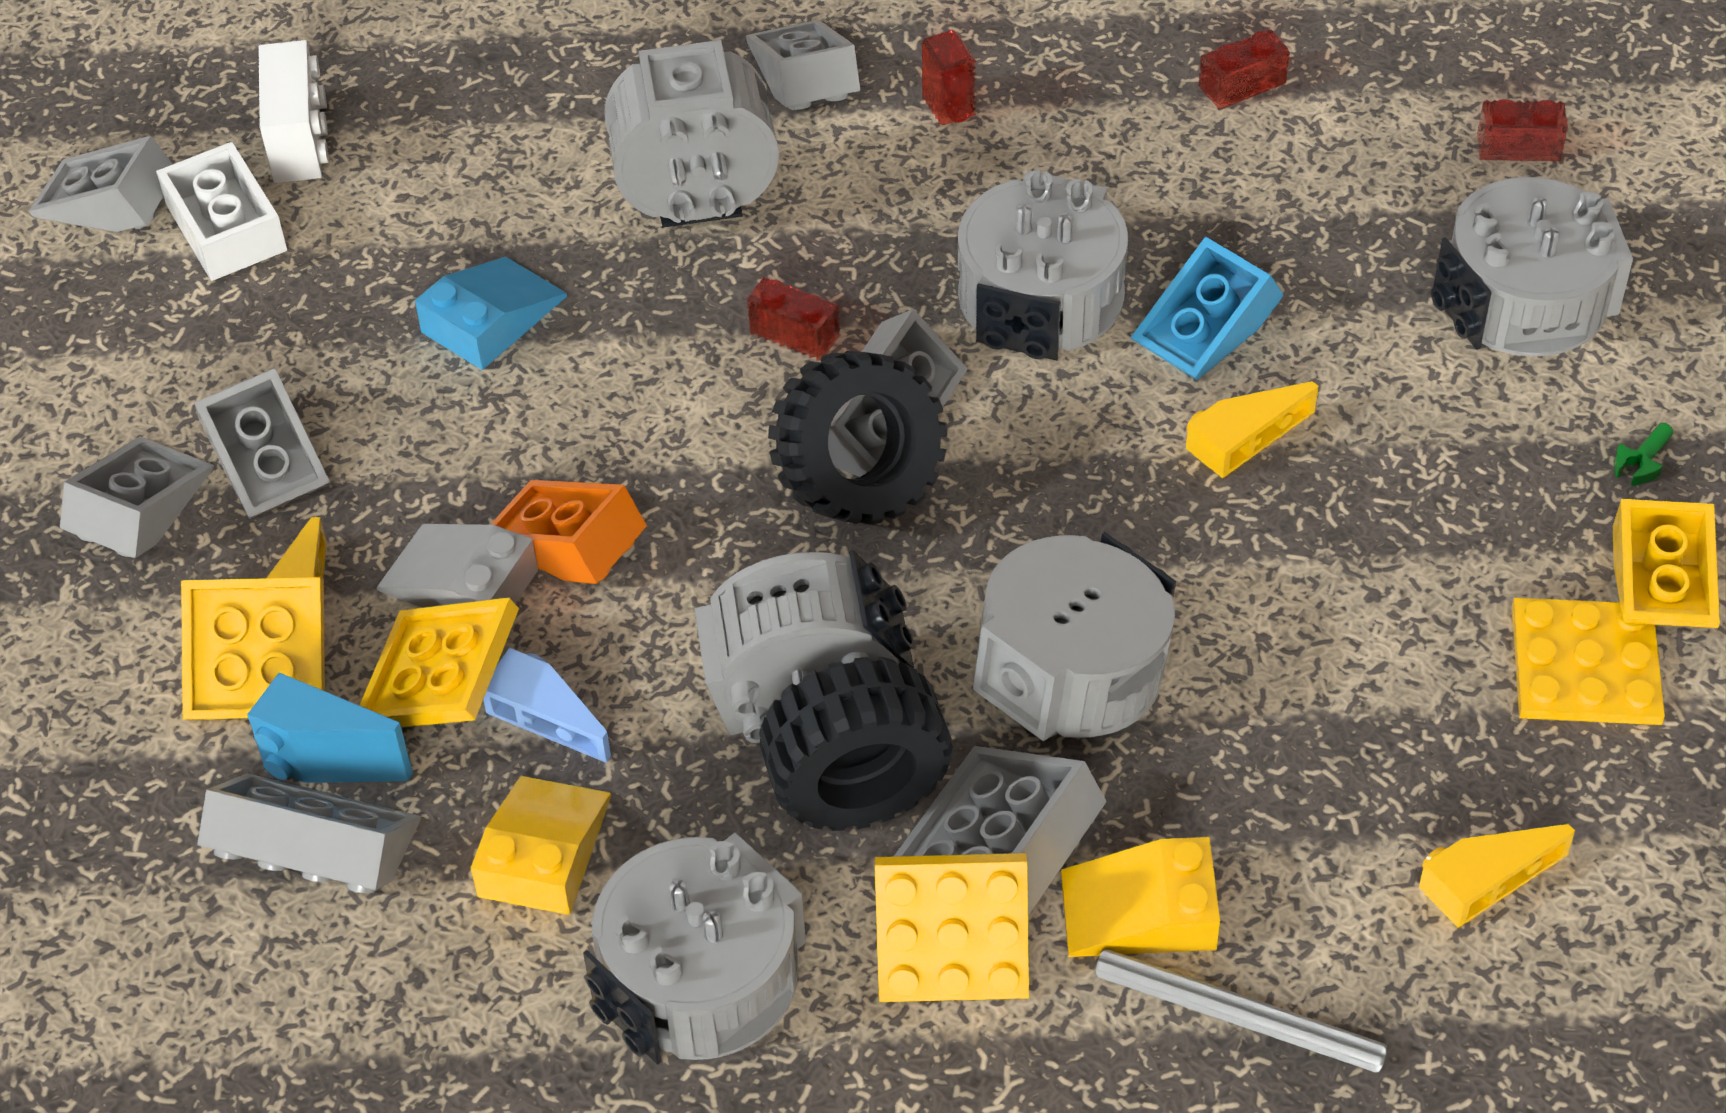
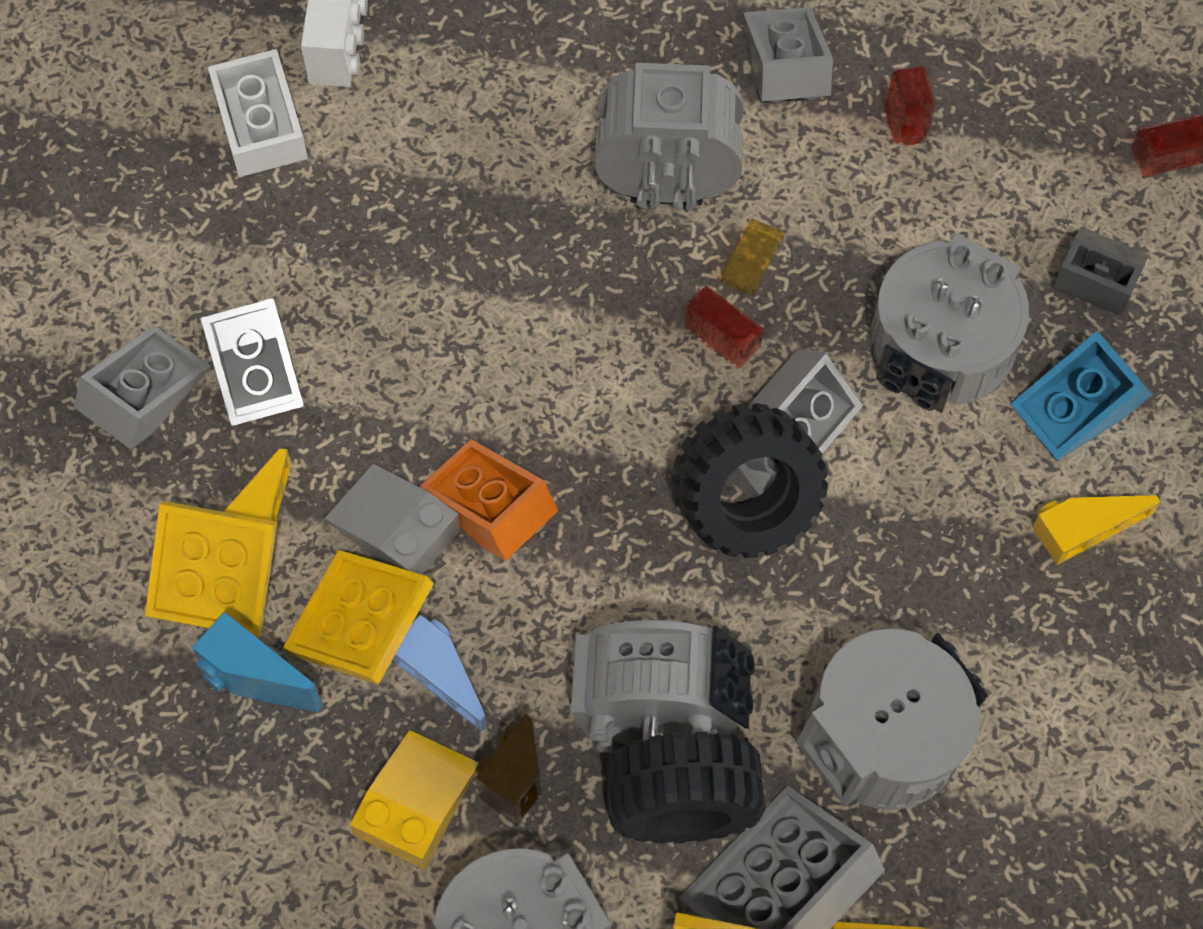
camera: 10 degrees right, 15 degrees up
(106, 187) = (165, 64): light grey slope -> none
(306, 831) = (227, 746): slope -> none
(485, 308) = (466, 257): dark azure slope -> none
(650, 782) = (511, 775): none -> dark brown slope
(810, 251) = (752, 257): none -> clear yellow plate
(1194, 197) = (1100, 271): none -> dark grey slope

